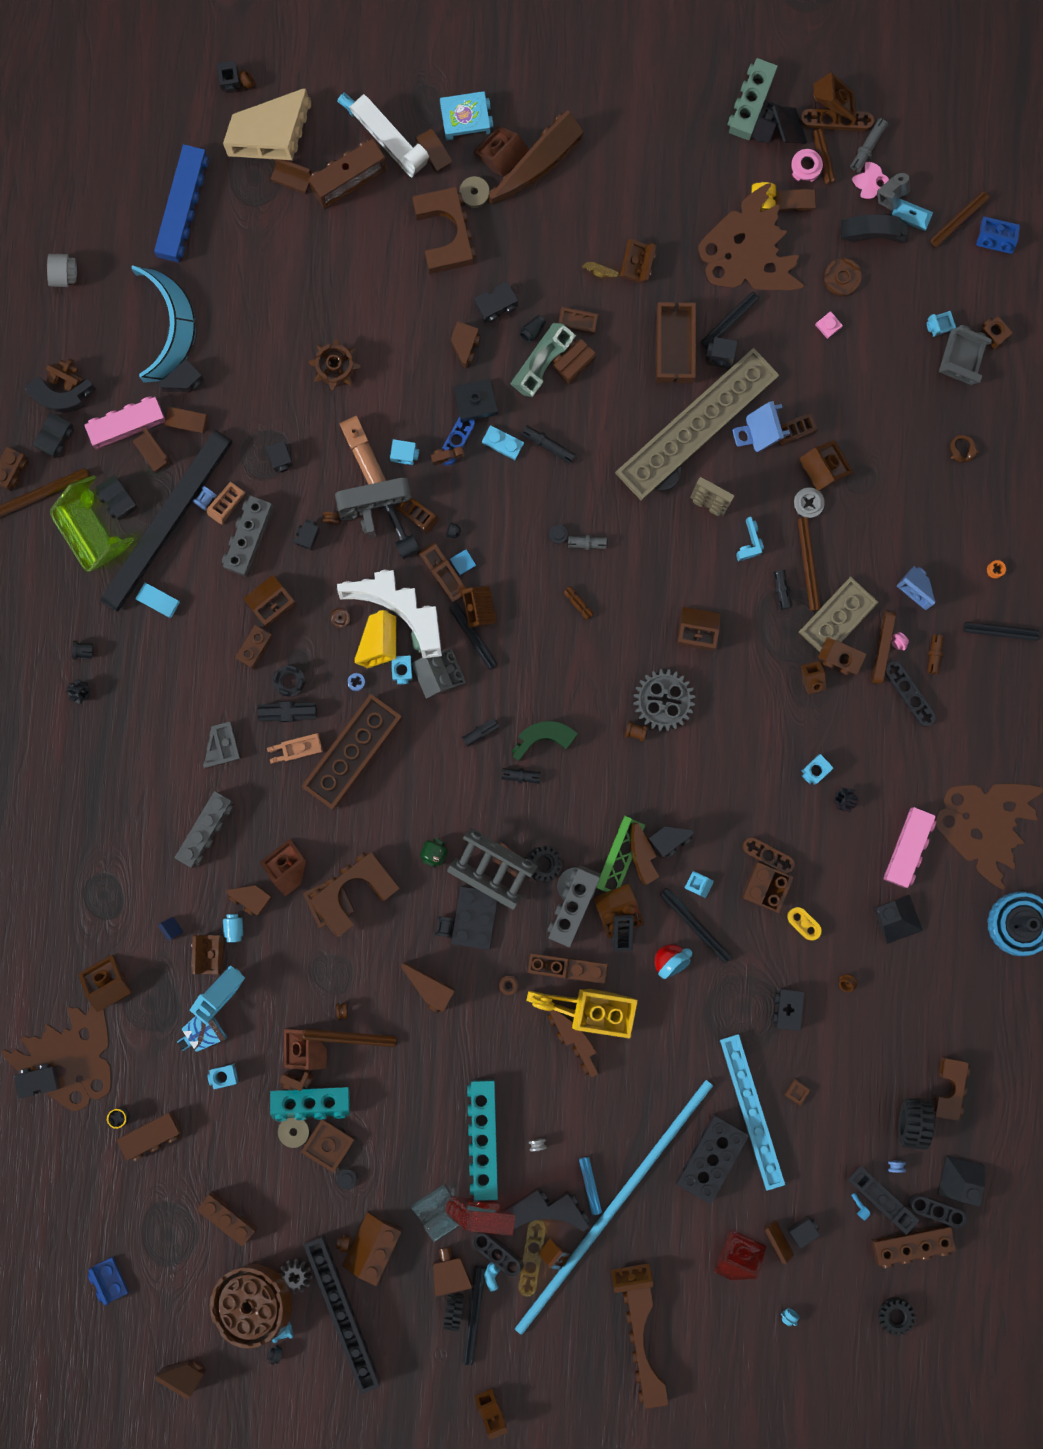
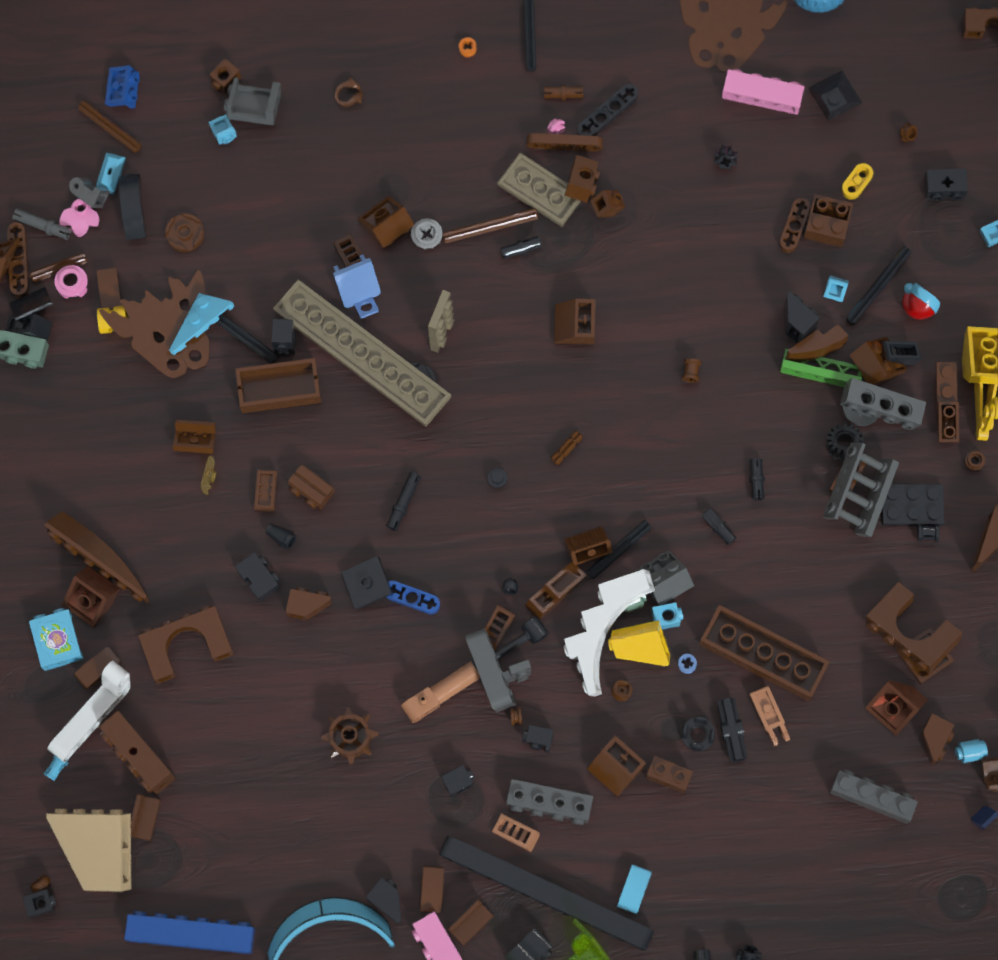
camera: 95 degrees left, 10 degrees down
(204, 498) = (521, 854): medium blue bush -> none
(221, 746) = (780, 794): dark grey wing -> none
(404, 452) = (434, 649): medium azure brick -> none
(434, 852) = (854, 554): dark green head -> none
(441, 456) = (434, 606): reddish brown plate -> none
(463, 562) = (542, 571): dark azure tile -> none
(478, 184) = (133, 611): dark tan piece -> none
(502, 442) = (407, 549): medium azure plate -> none
(546, 730) = (707, 463): dark green arch -> none
(552, 344) = (293, 509): sand green arch -> none
(587, 542) = (501, 447): dark grey pin -> none
(662, 717) = (672, 347): dark grey gear -> none
(747, 552) = (483, 277): medium azure bracket -> none
(756, 282) = (201, 315): none -> medium azure wing
(824, 767) = (696, 182): medium azure brick -> none
(828, 325) = (237, 239): bright pink plate -> none
(918, 587) = (499, 116): medium blue slope -> none

